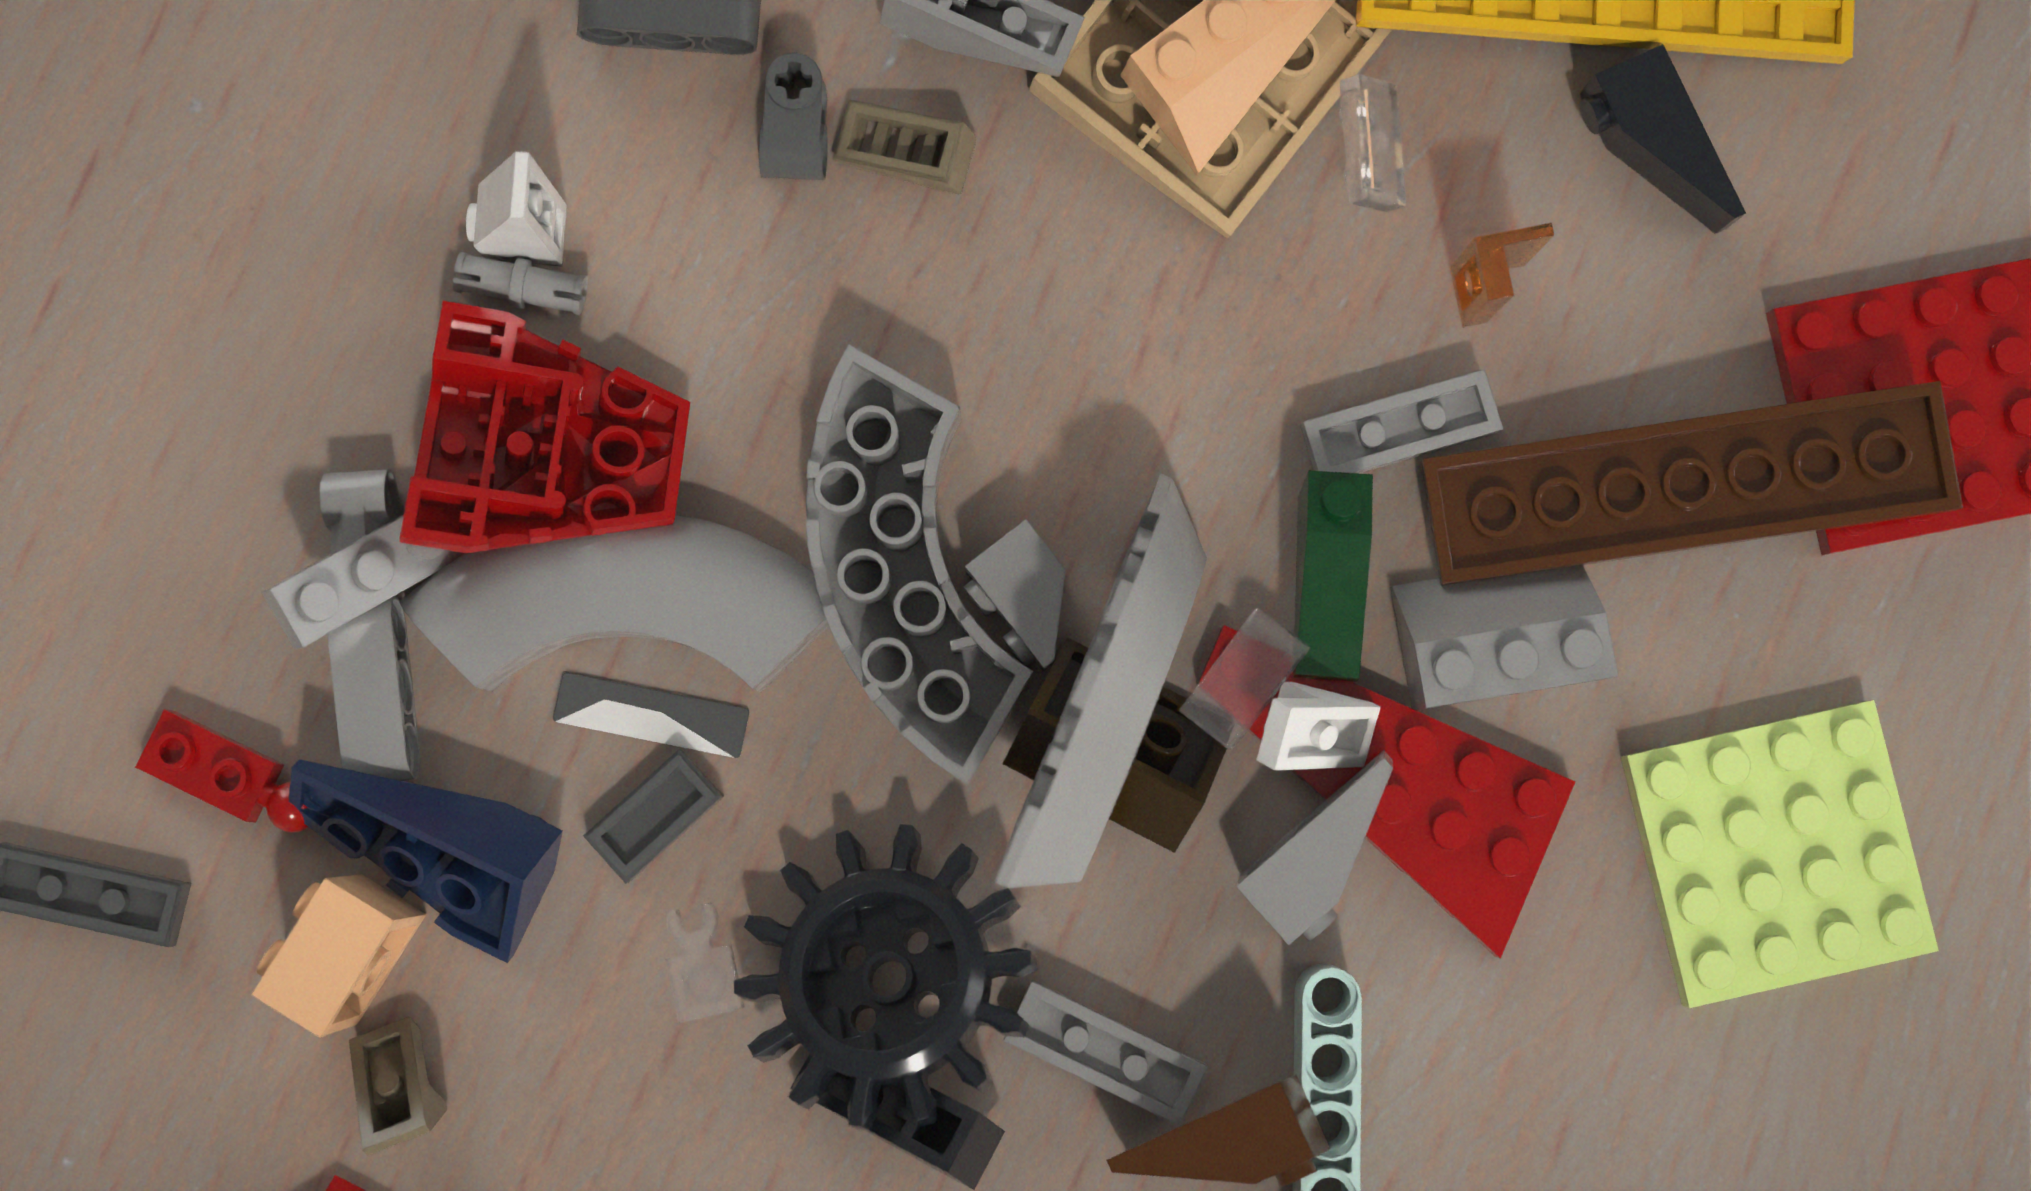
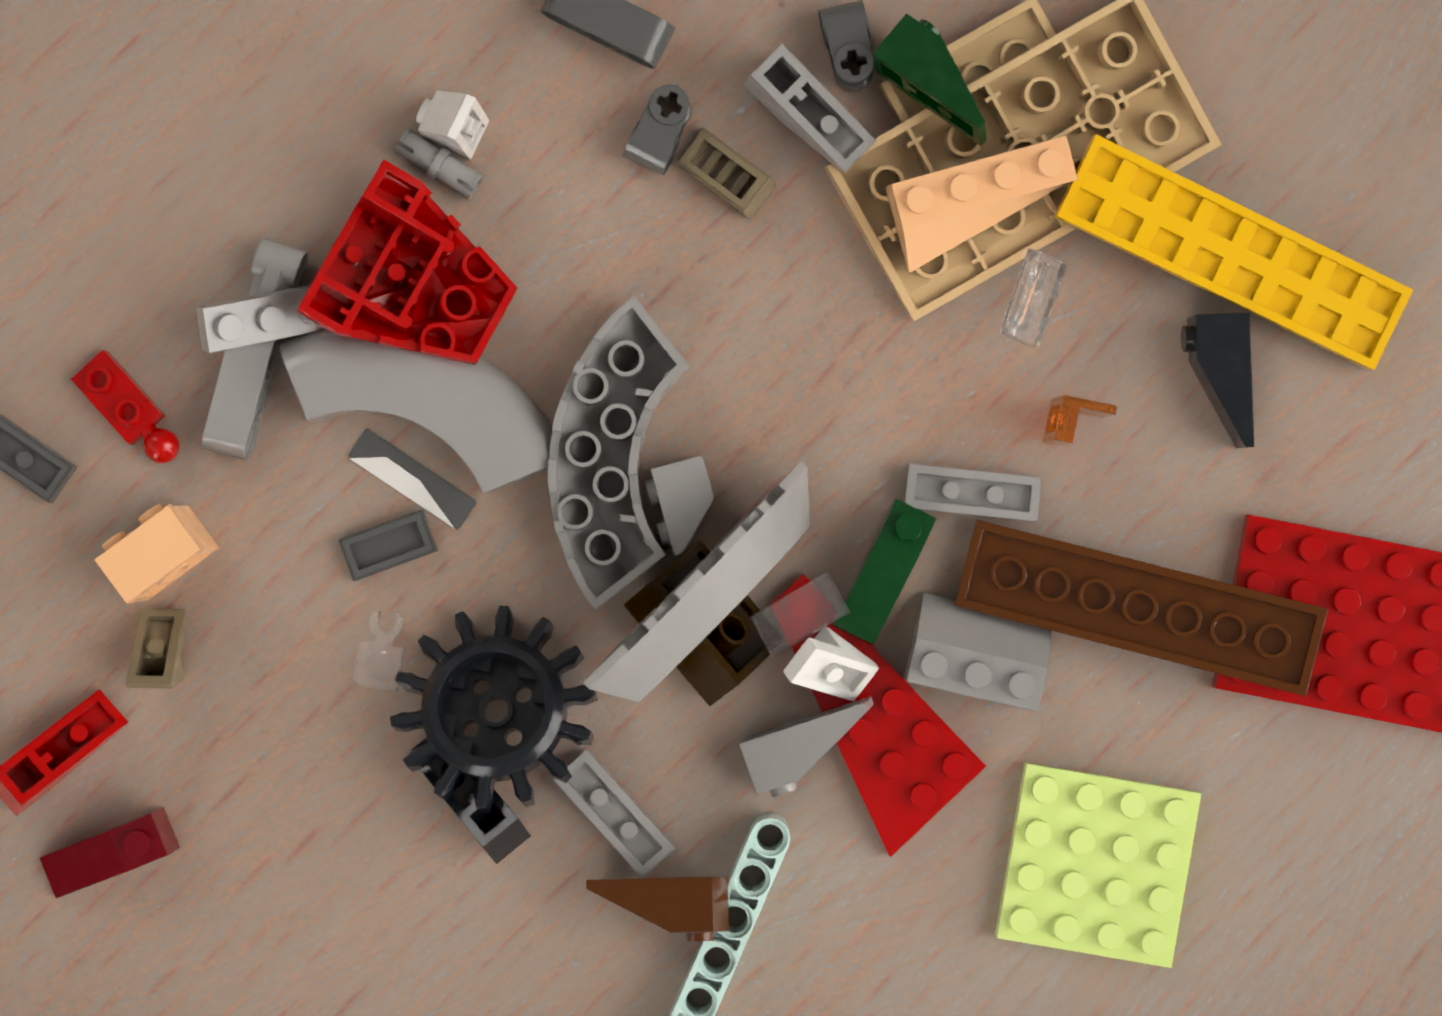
camera: 25 degrees right, 5 degrees up
(456, 851) = (256, 520): dark blue wedge -> none

